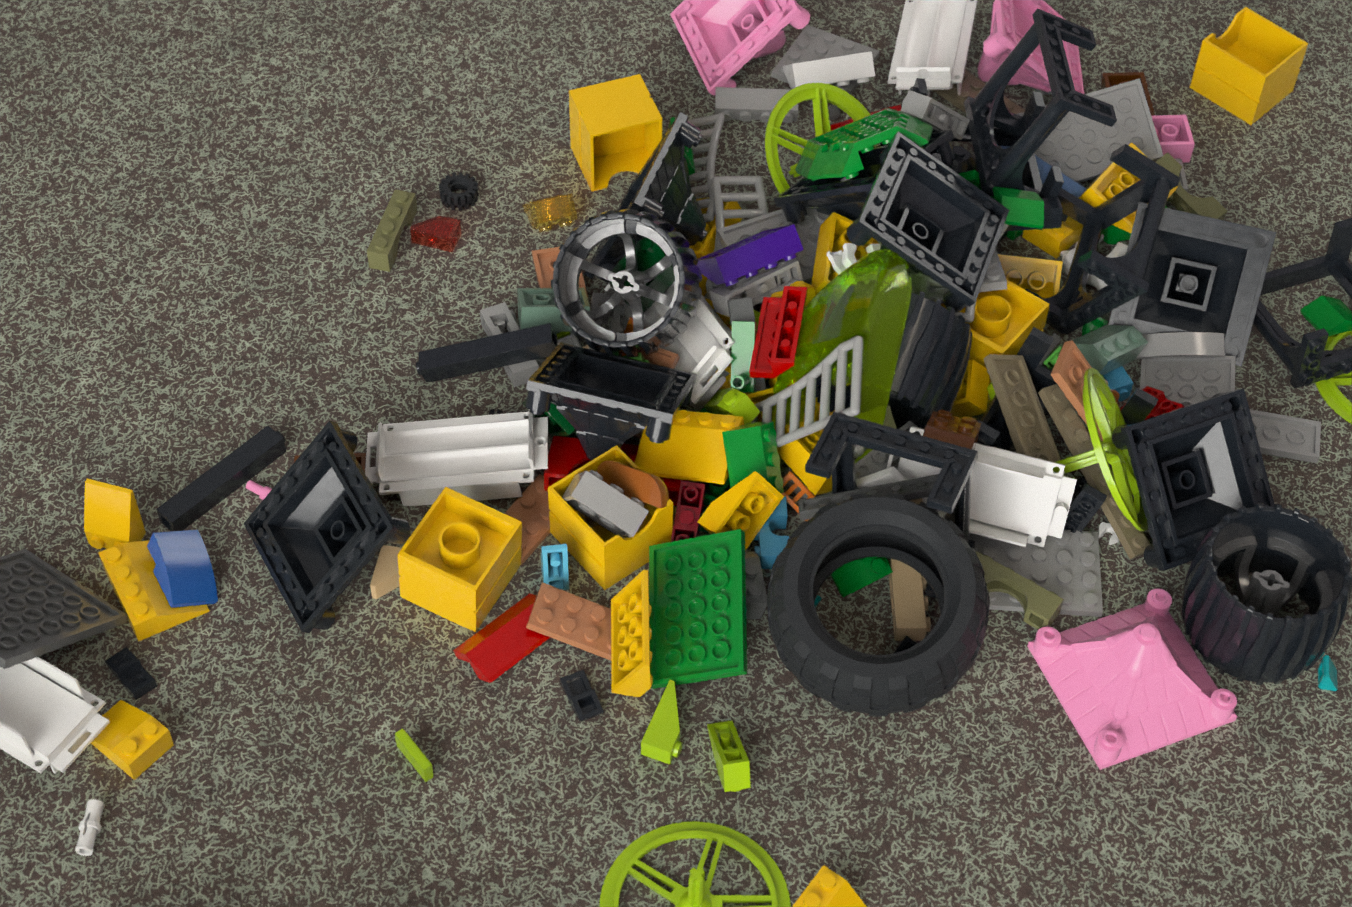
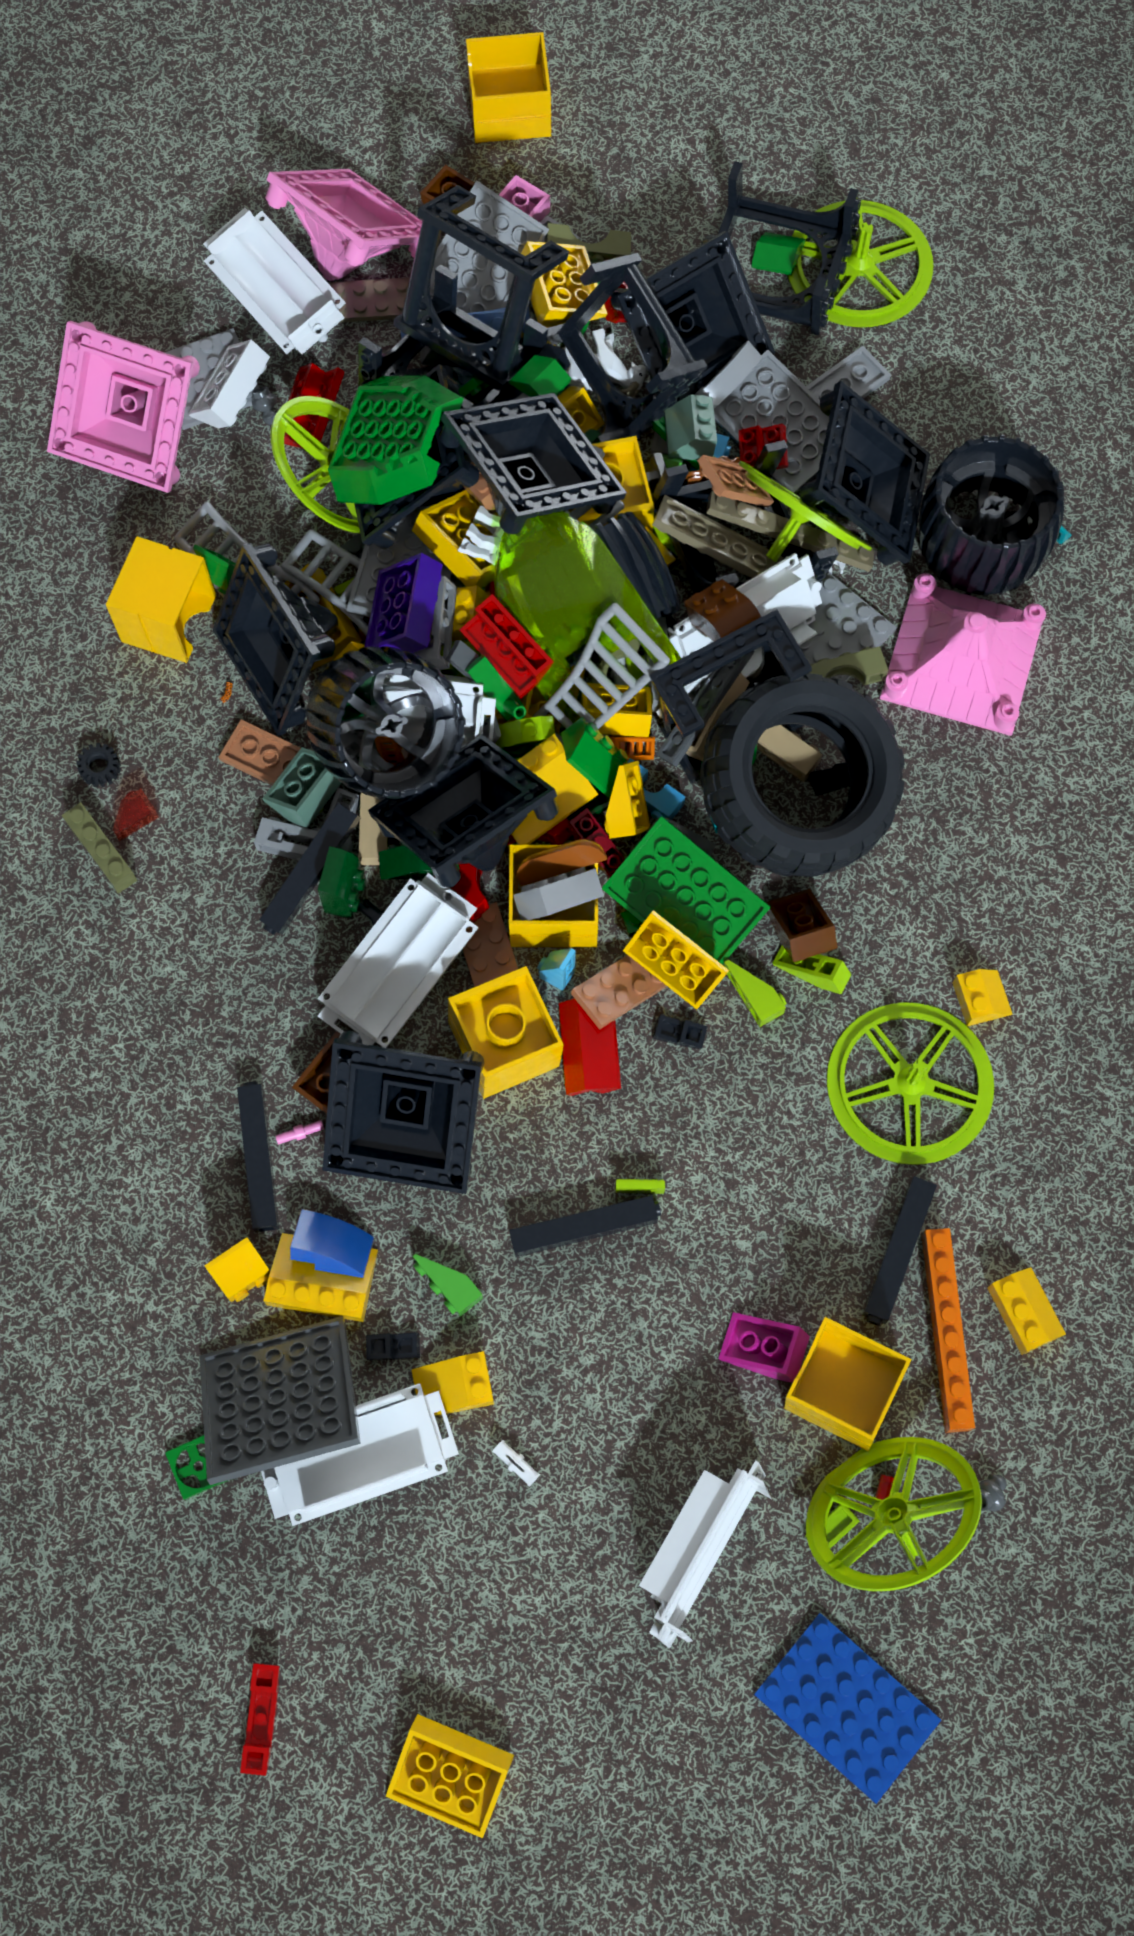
camera: 50 degrees left, 20 degrees up
(213, 682) = (453, 1285): none -> bright green slope
(344, 738) = (584, 1226): none -> black brick
(492, 376) = (341, 883): none -> dark green brick
(551, 211) = (186, 710): clear yellow slope -> none
(750, 103) = (211, 467): light grey brick -> none
(756, 715) = (802, 925): none -> reddish brown brick
(934, 114) = (404, 362): light grey brick -> none

